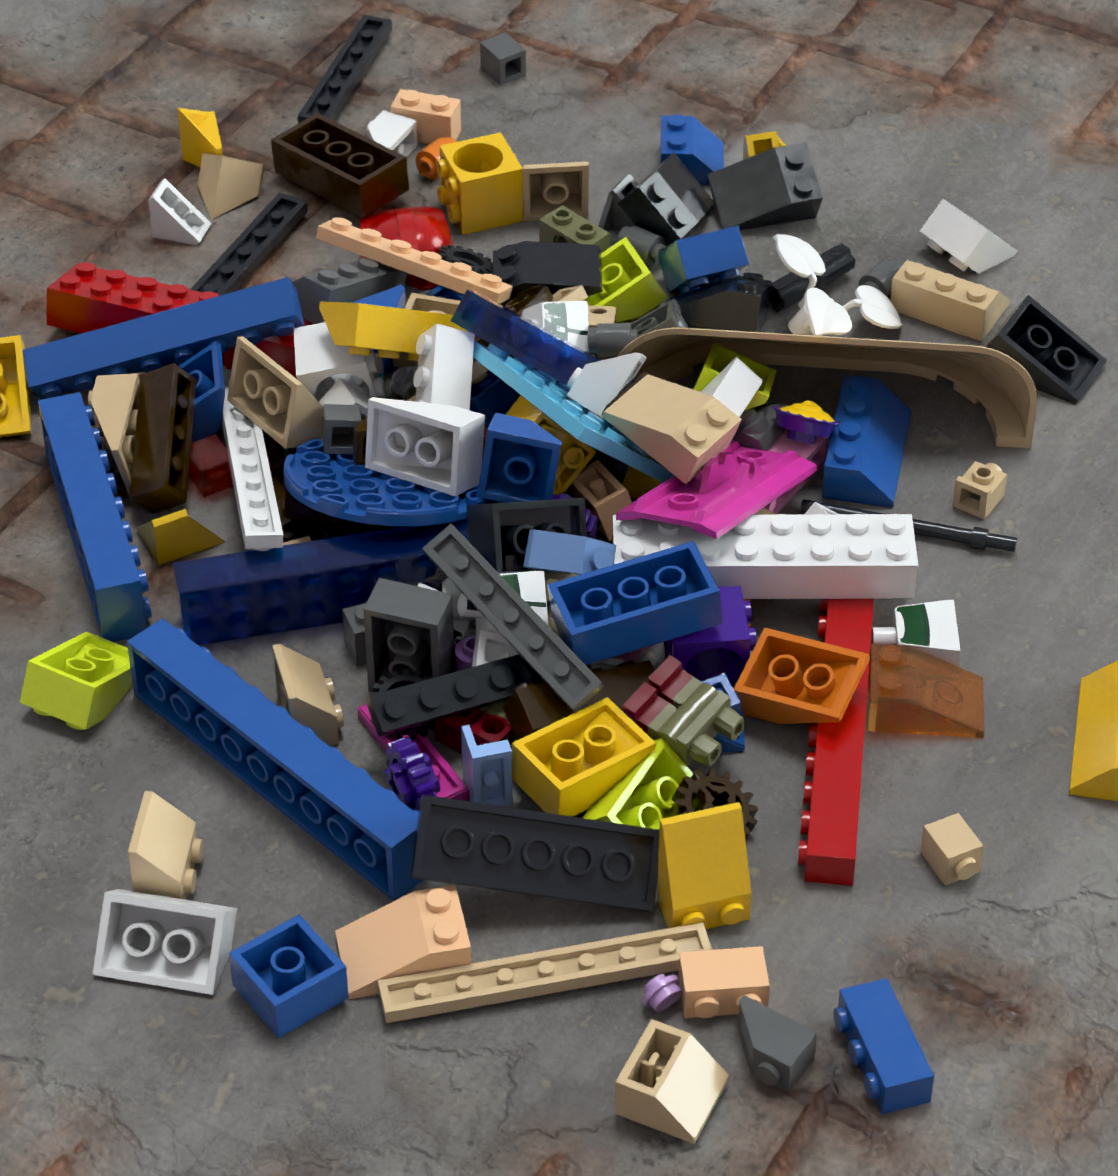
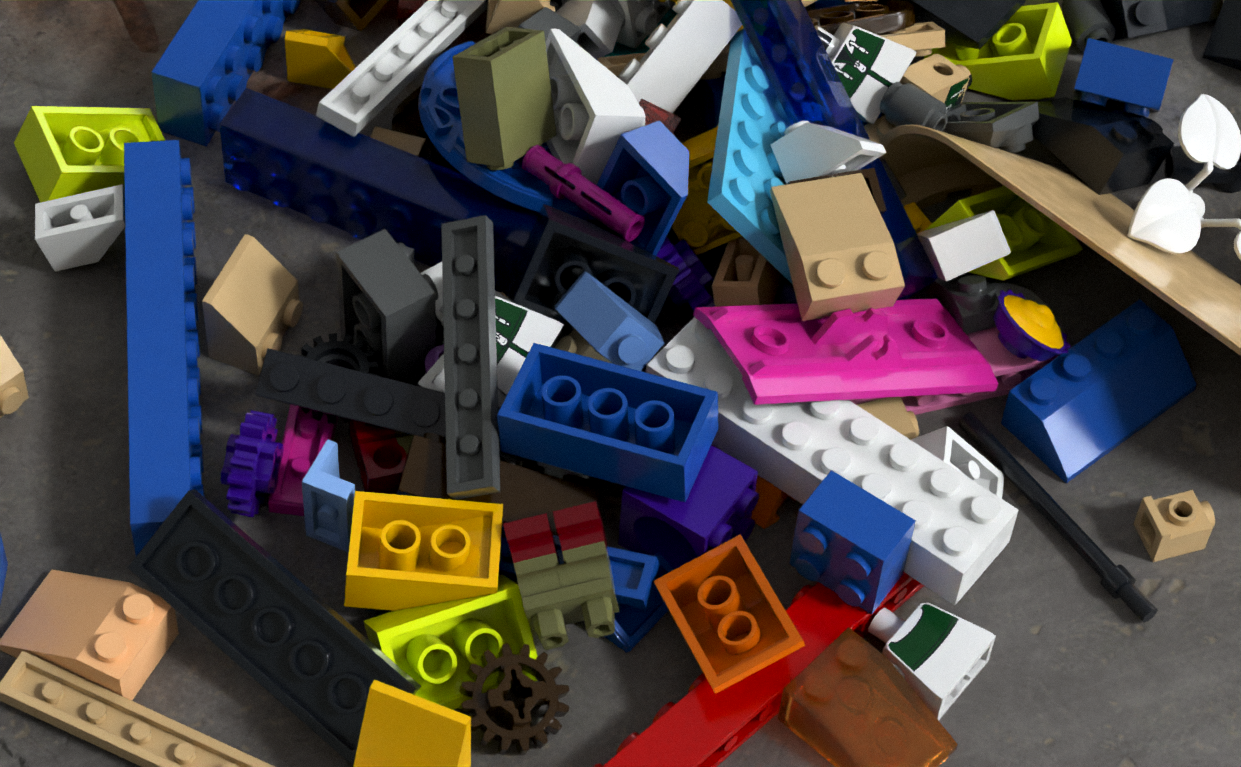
camera: 35 degrees right, 10 degrees up
(138, 716) = (79, 226): none -> white slope
(384, 453) = (504, 96): none -> olive brick
(477, 489) = (544, 166): none -> magenta pin
(836, 589) = (851, 542): none -> blue brick

